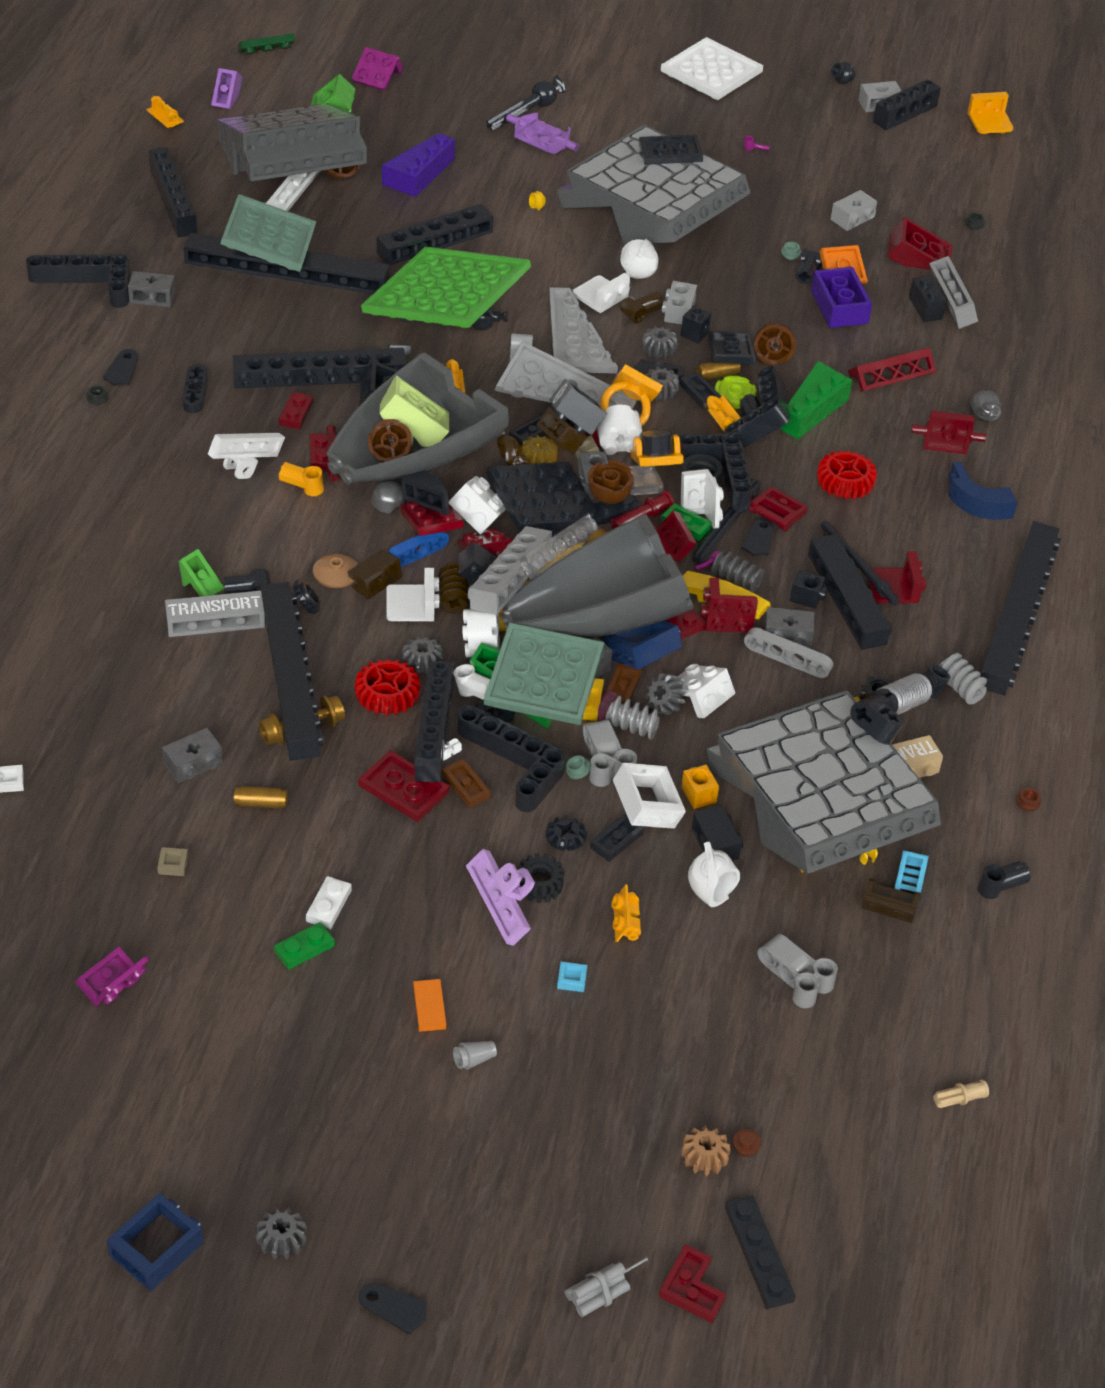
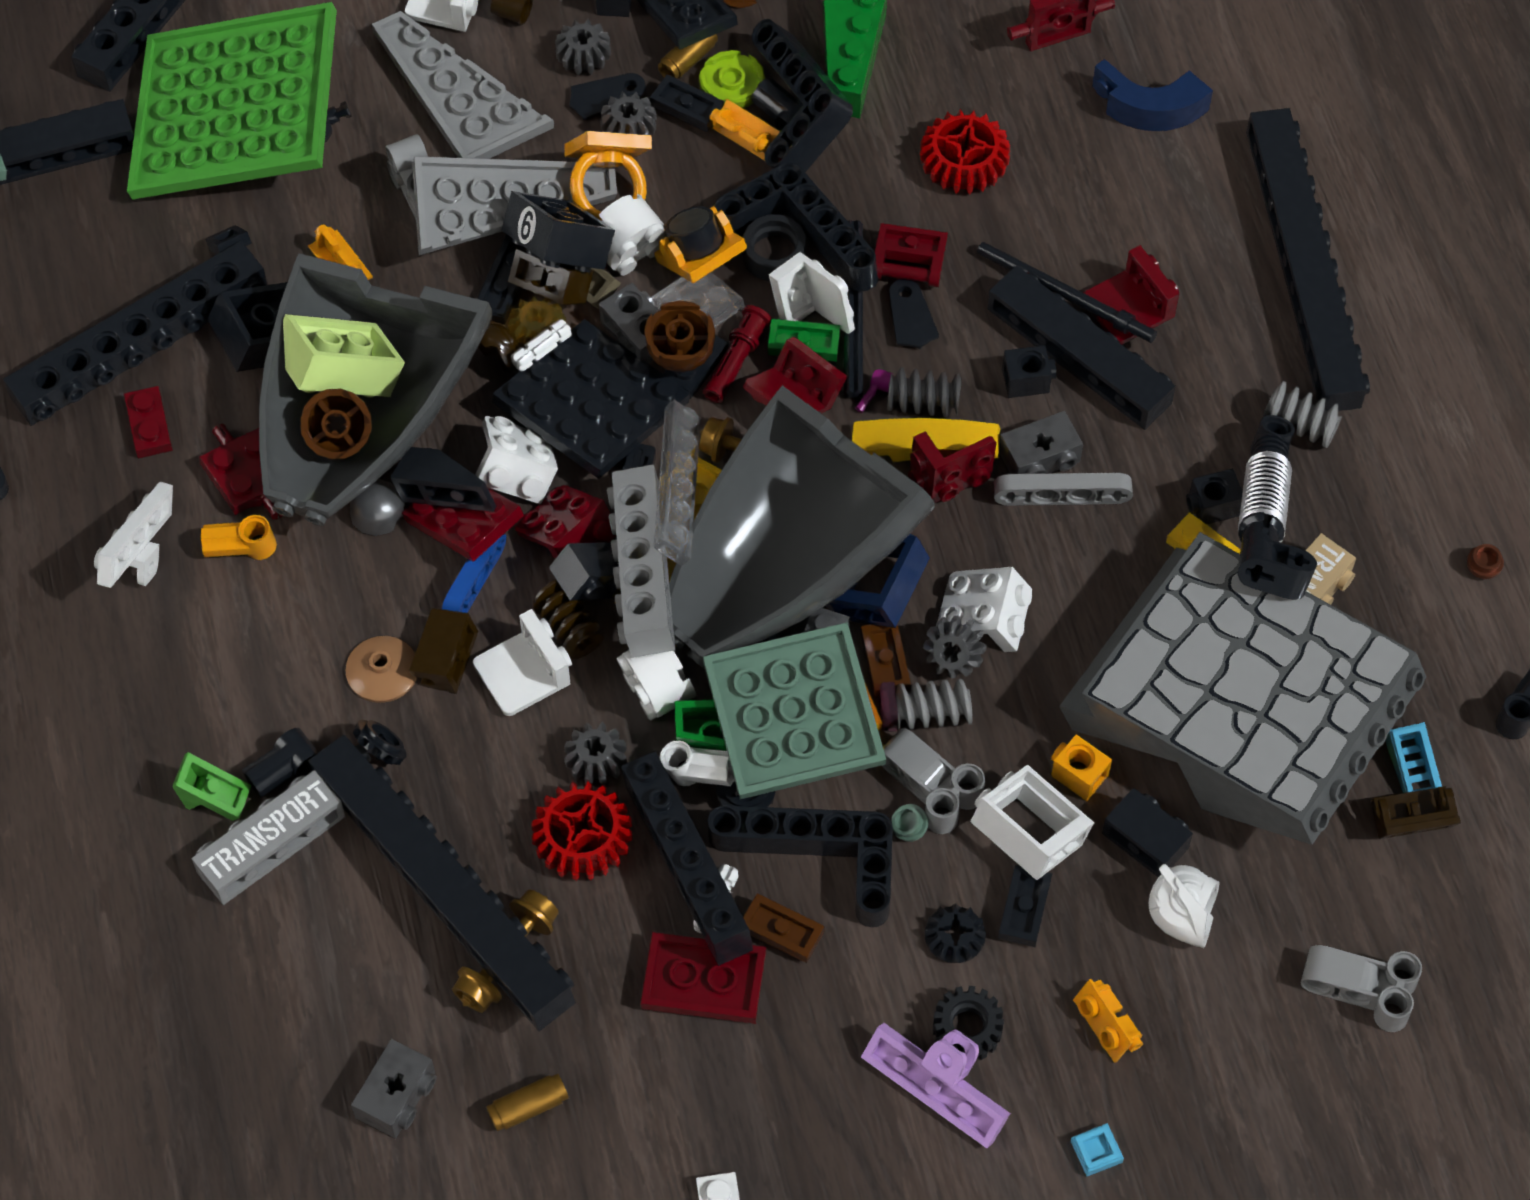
camera: 25 degrees left, 15 degrees up
(531, 456) = (541, 345): none -> white axle

